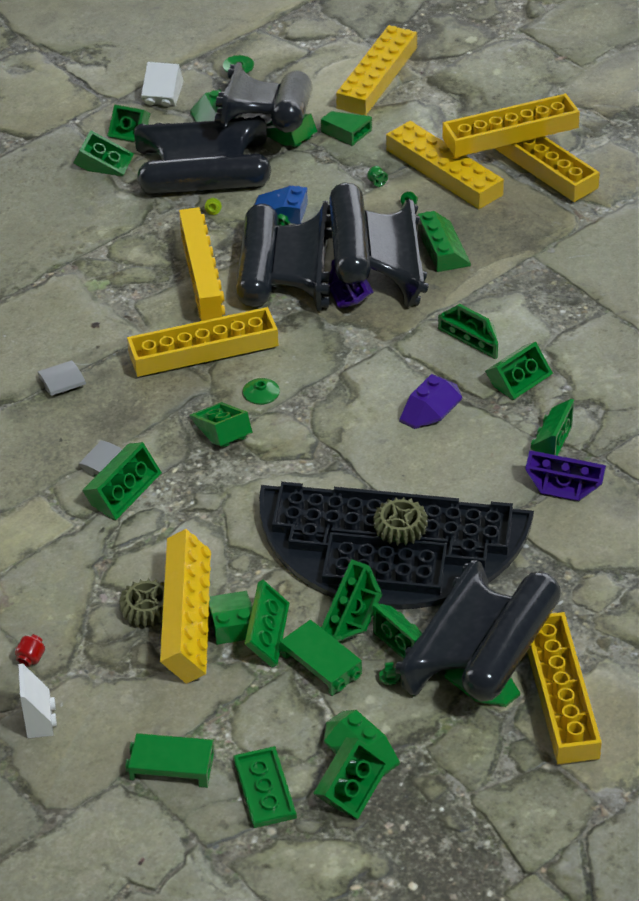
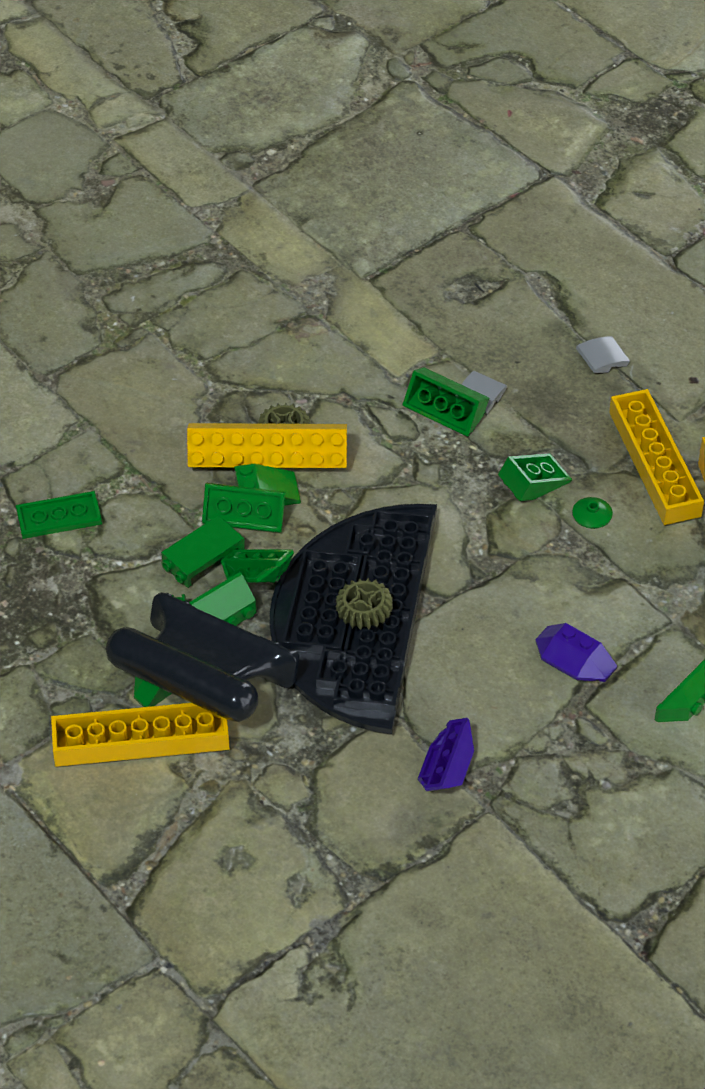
camera: 90 degrees right, 5 degrees up
(29, 650) = (231, 349): red head -> none
(36, 705) = (155, 345): white slope -> none
(171, 757) = (91, 447): green panel -> none
(352, 777) = (45, 565): green slope -> none
(354, 725) = (96, 578): green wedge -> none
(519, 371) = (623, 733): green slope -> none
(554, 429) = (513, 757): green slope -> none

